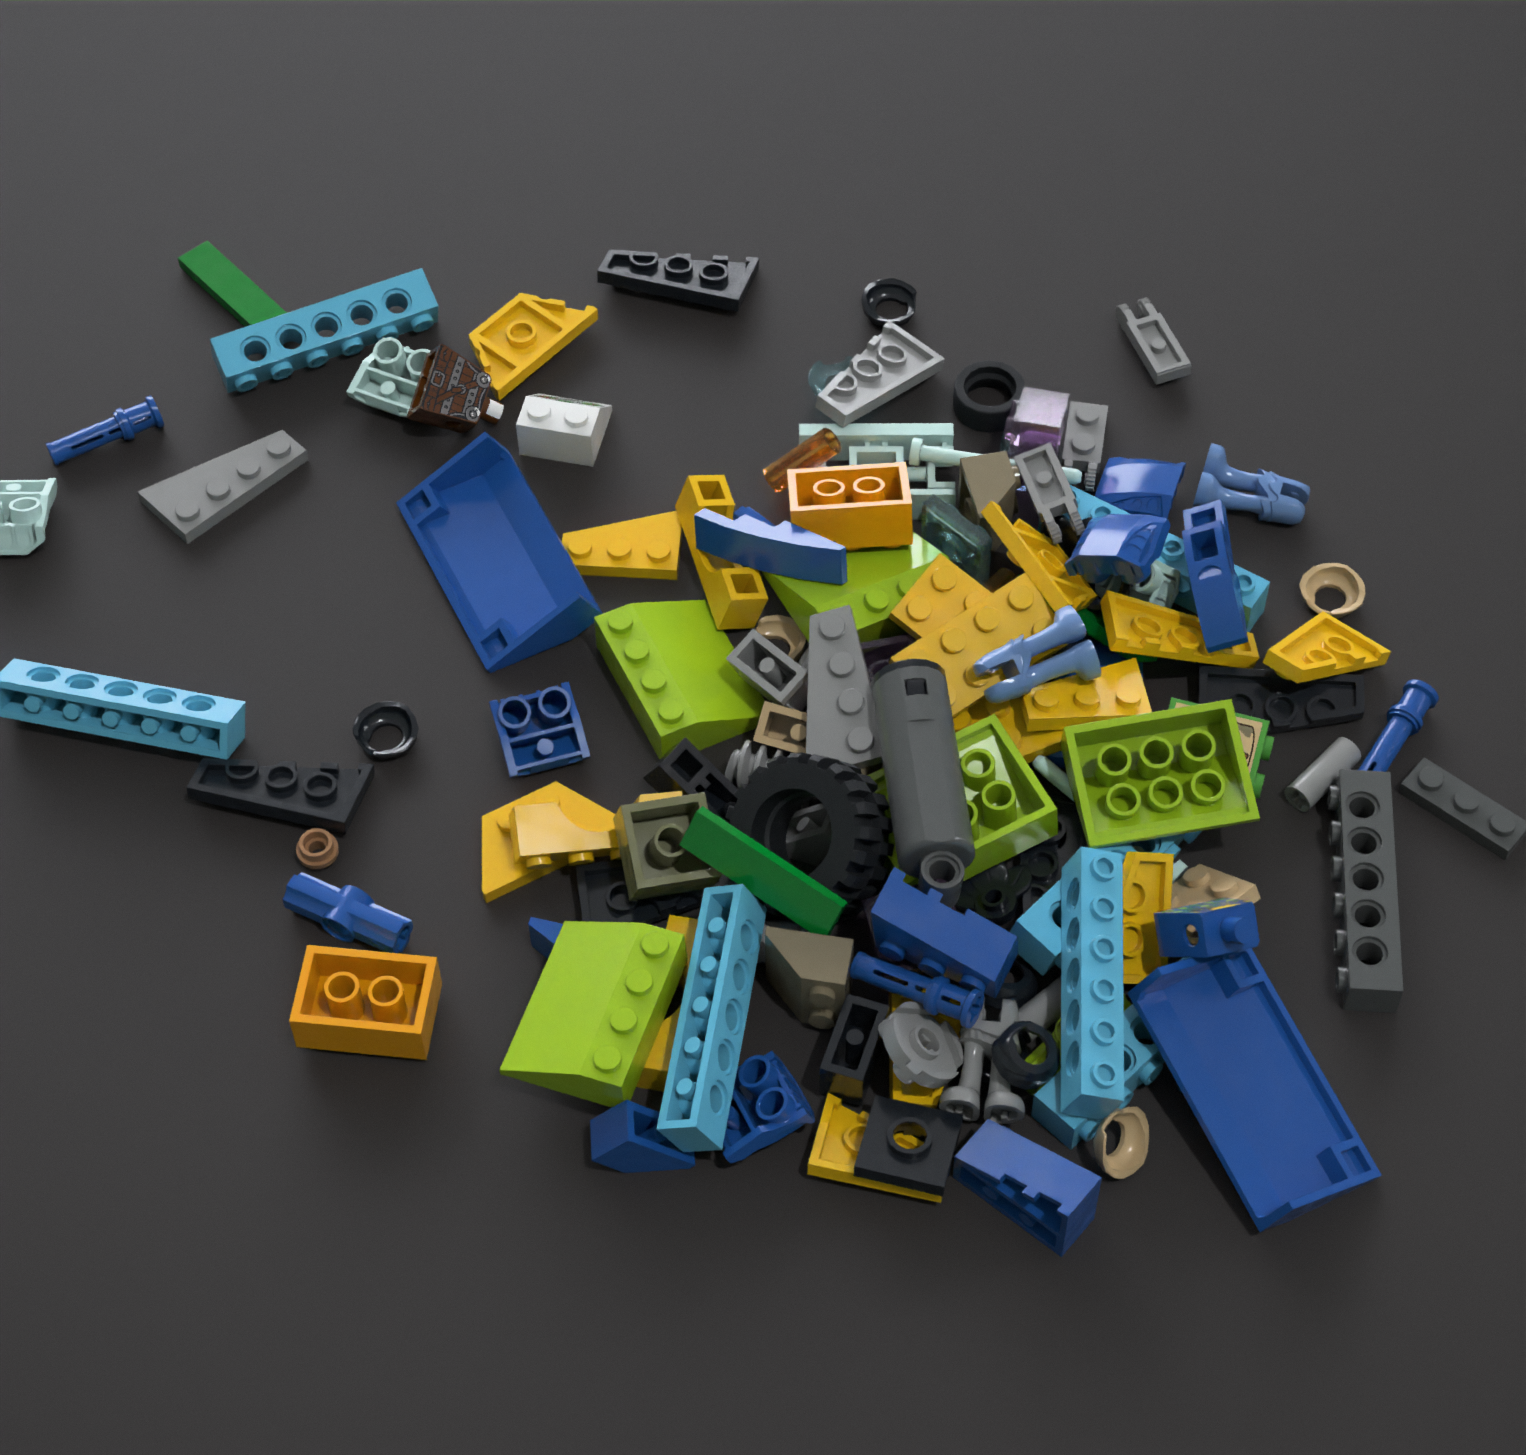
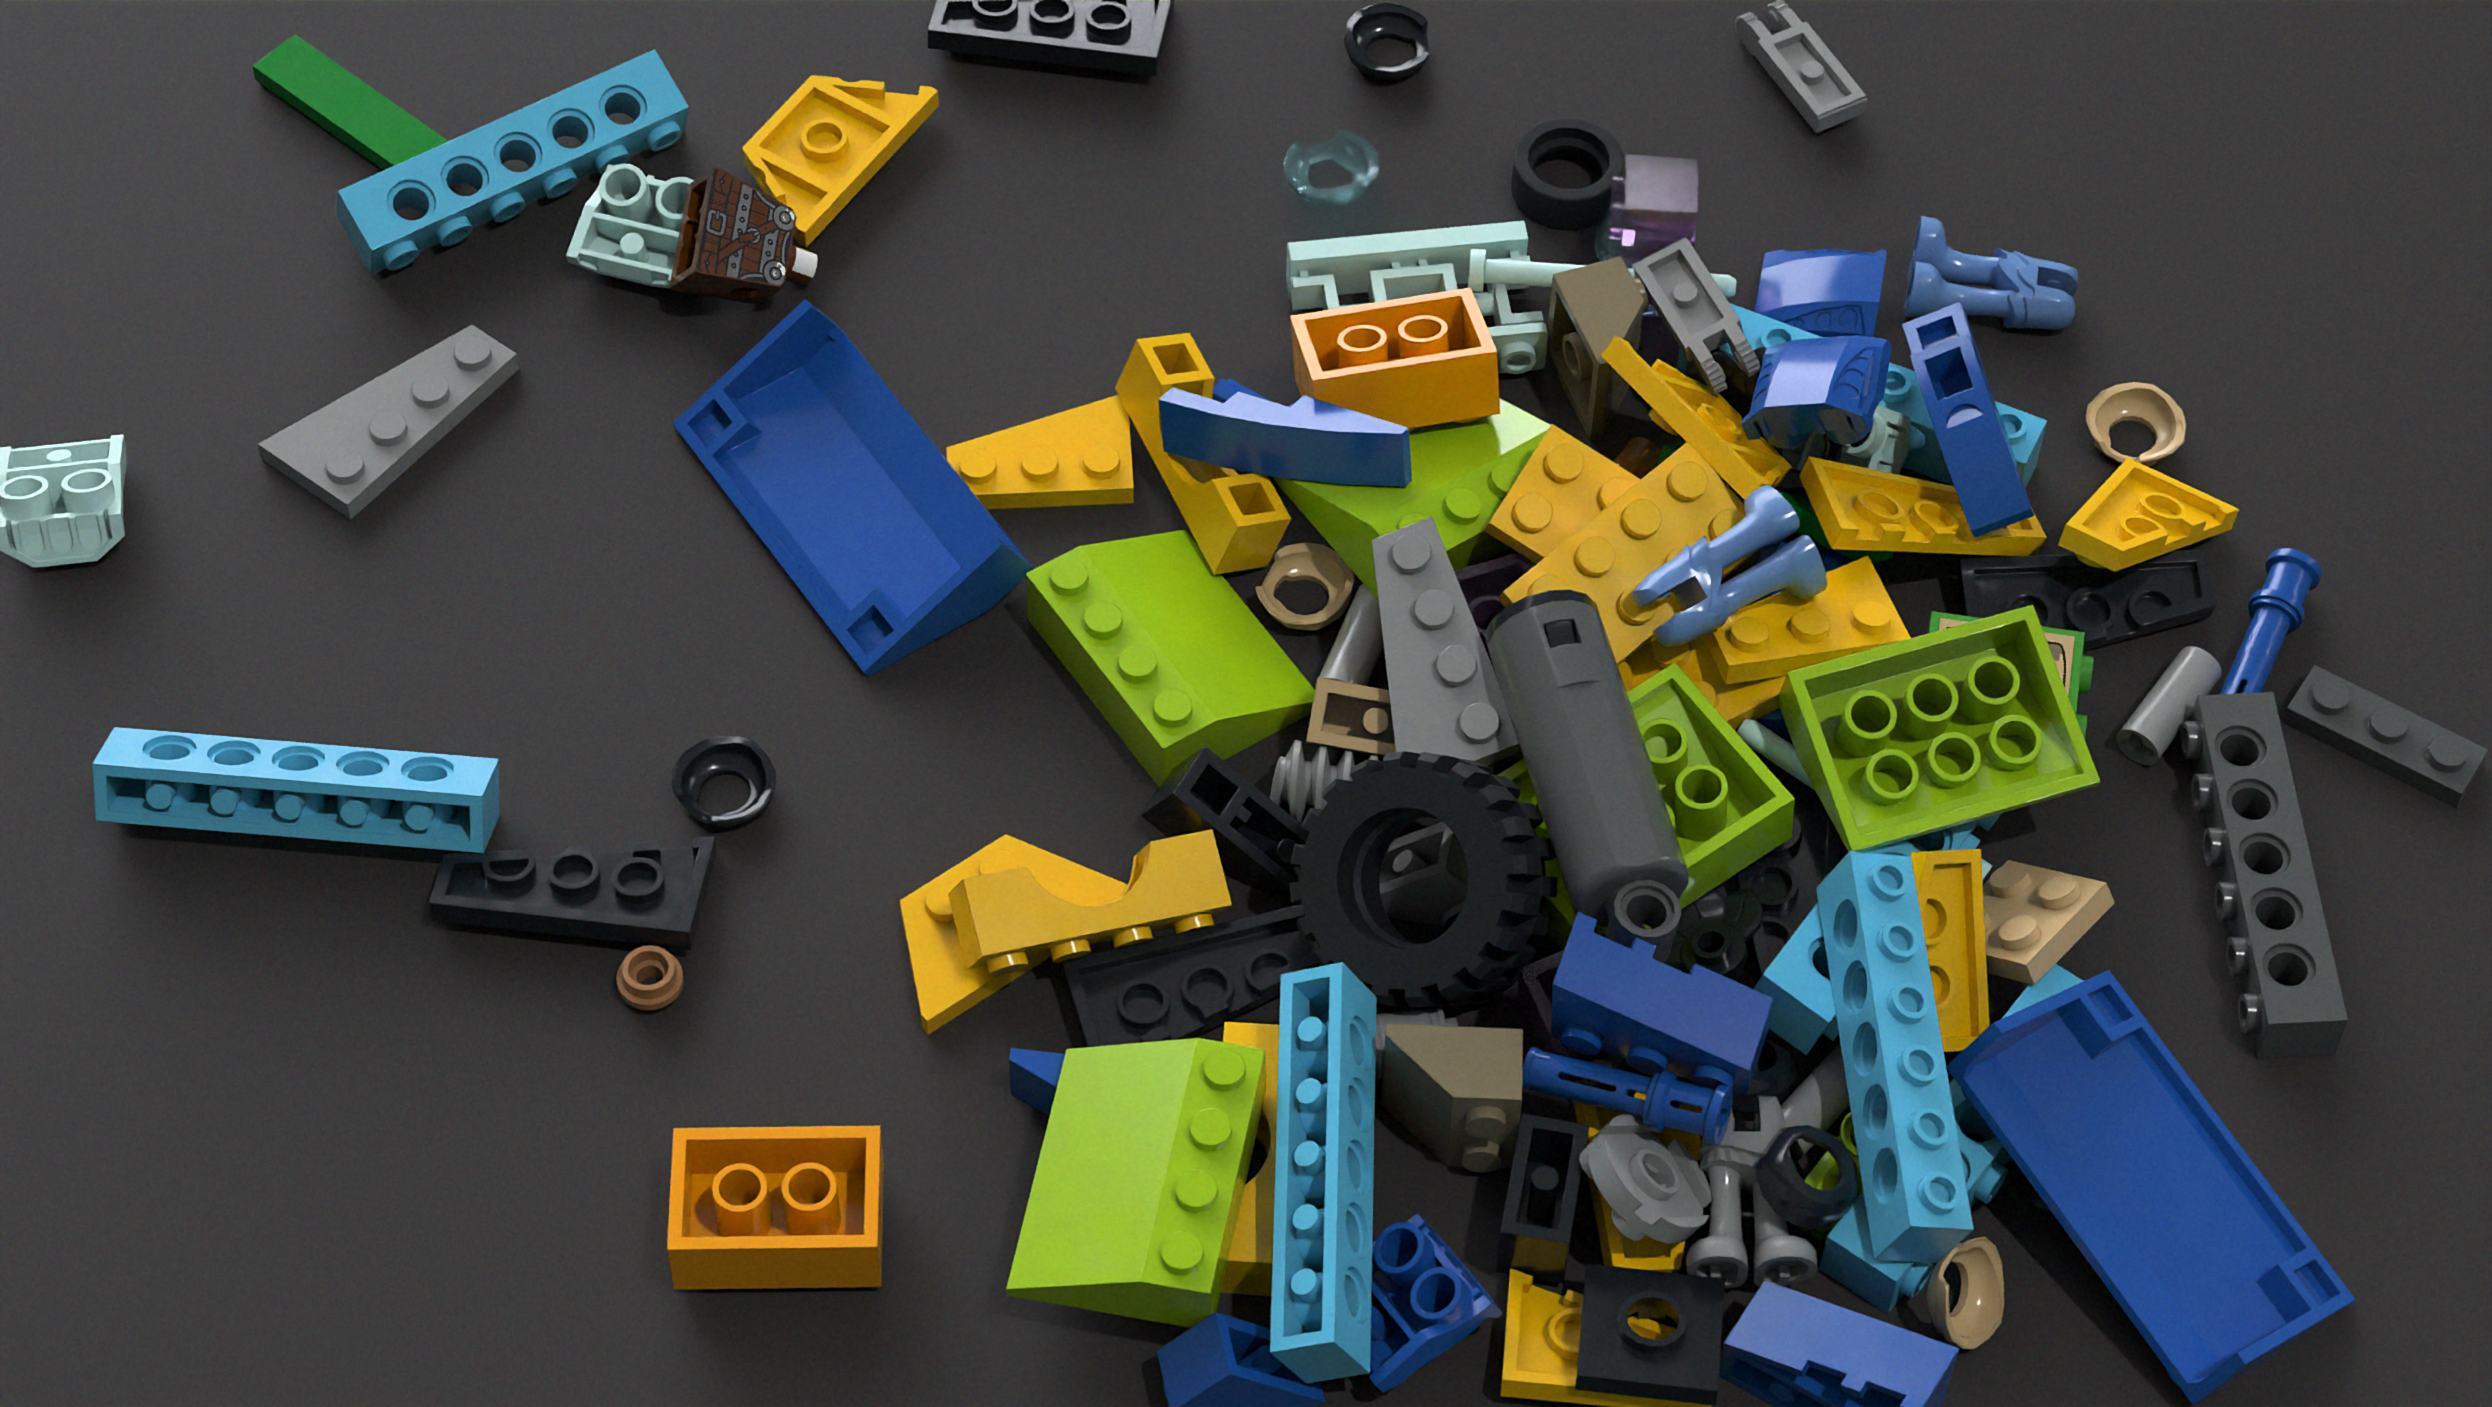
camera: 10 degrees left, 0 degrees up
(122, 424) = (214, 339): blue pin -> none
(347, 913) = (718, 1073): blue piece -> none
(539, 730) = (968, 758): blue slope -> none
(561, 428) = (915, 284): white slope -> none
(651, 850) = (1208, 917): olive brick -> none
(762, 873) = (1369, 942): green tile -> none
(767, 668) = (1311, 628): light grey slope -> none
(808, 454) = (1307, 292): clear orange piece -> none
(882, 372) = (1394, 155): light grey wing -> none
(957, 537) = (1563, 395): clear light blue plate -> none
(1085, 439) = (1726, 228): light grey hinge -> none
(1221, 924) = (2079, 950): blue torso -> none

